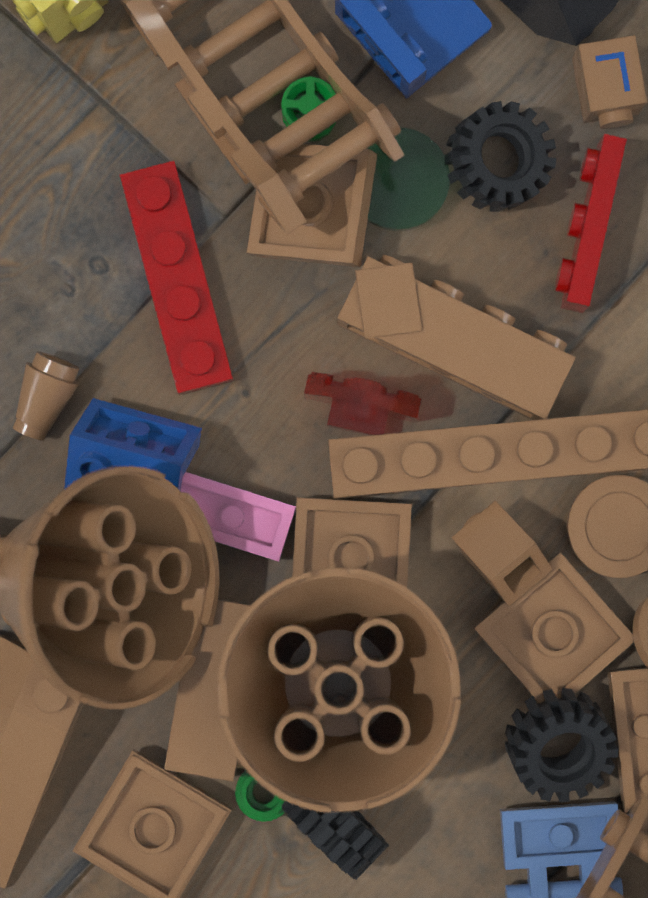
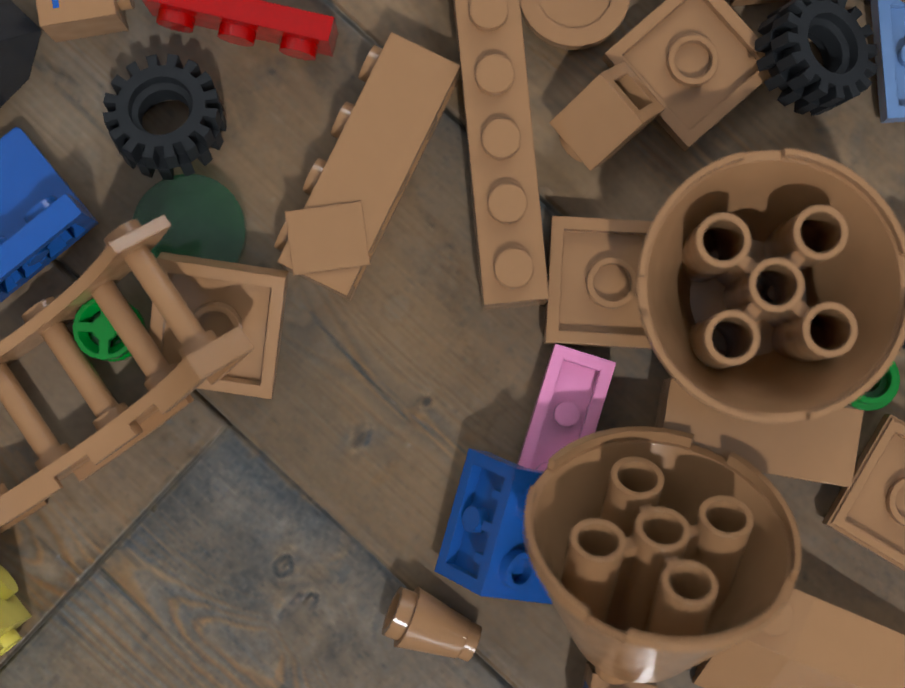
camera: 90 degrees left, 0 degrees up
(176, 277) = (297, 478): red plate -> none
(360, 403) = (442, 271): clear red plate -> none

